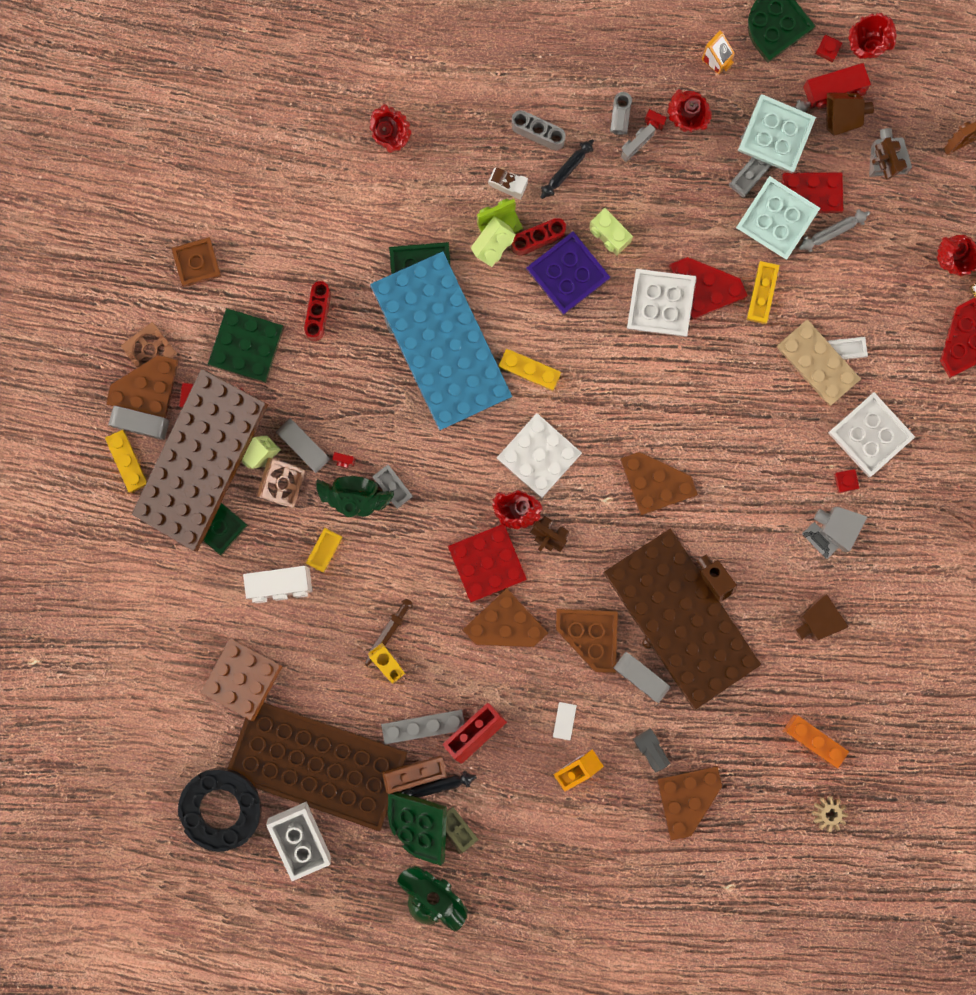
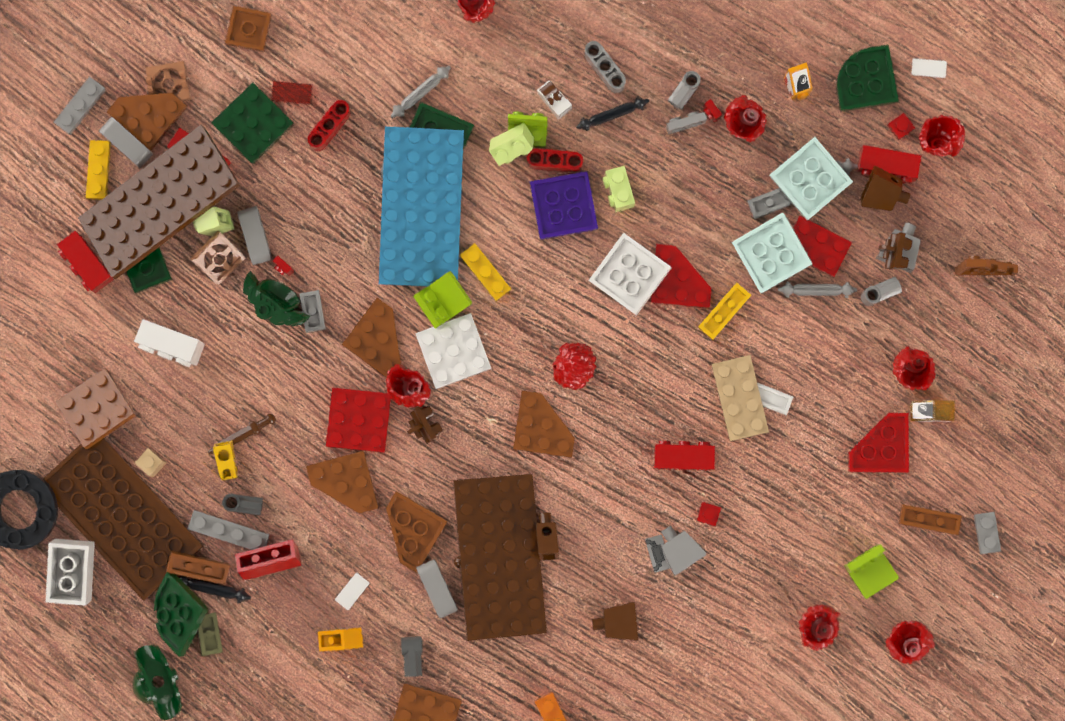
camera: 30 degrees right, 0 degrees up
(78, 411) = (79, 105): none -> light grey plate
(159, 551) = (84, 262): none -> red brick
(267, 299) = (291, 92): none -> clear red tile
(318, 702) = (150, 462): none -> tan brick
(324, 550) = (225, 335): yellow tile -> none
(383, 238) = (421, 91): none -> light grey wheel
(426, 694) = (245, 504): none -> dark grey piece
(463, 481) = (375, 338): none -> dark orange plate
(506, 413) = (442, 299): none -> lime bracket
(656, 411) = (574, 365): none -> red hair
(798, 440) = (684, 456): none -> red brick
(871, 434) = (751, 485): white plate -> none
(892, 202) = (882, 291): none -> light grey piece

